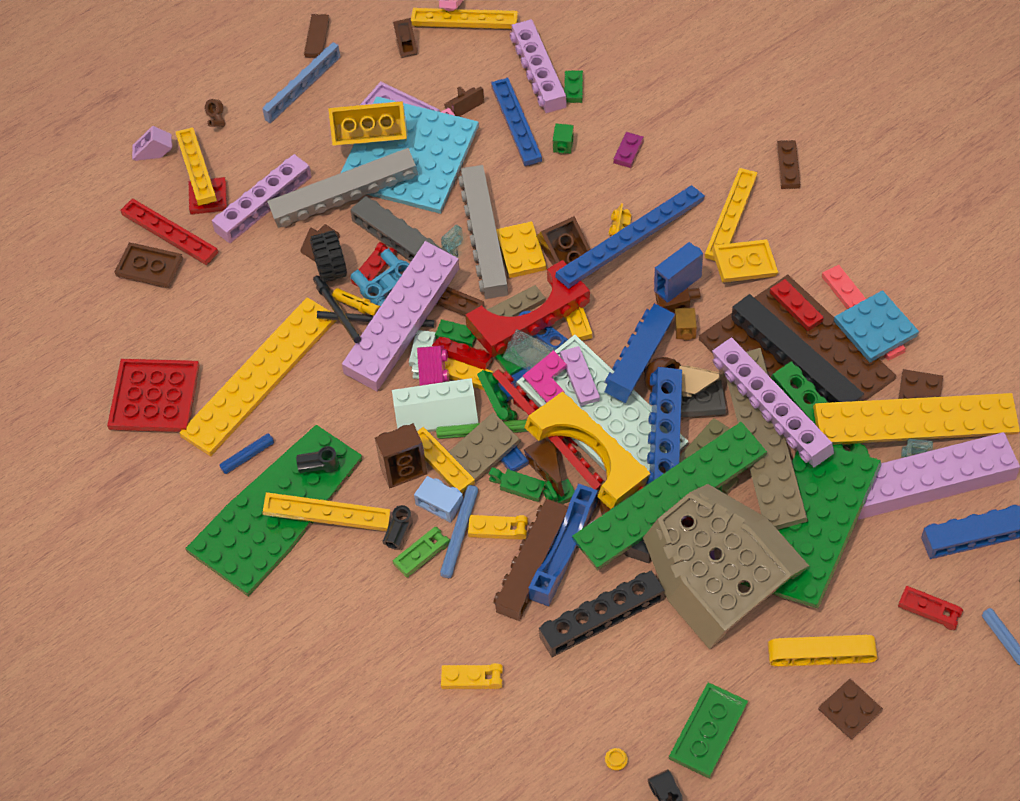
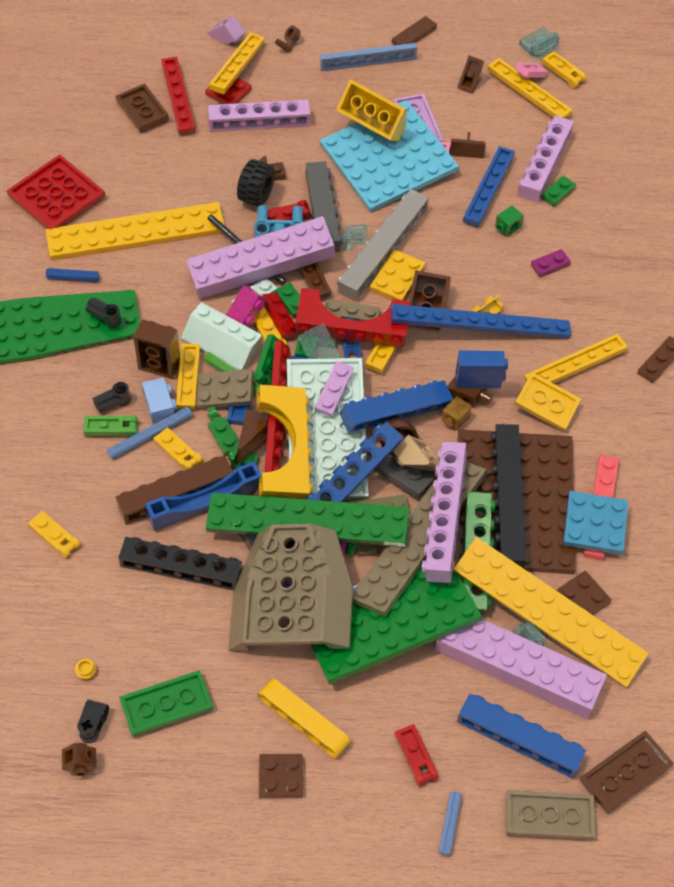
camera: 35 degrees right, 0 degrees up
(324, 290) = (233, 205): black bar -> none
(326, 512) = (75, 349): yellow plate -> none
(343, 188) = (317, 145): light grey brick -> none
(363, 305) = (243, 222): yellow pin -> none
(542, 376) = (305, 367): dark pink plate -> none
(796, 305) = (551, 461): red plate -> none

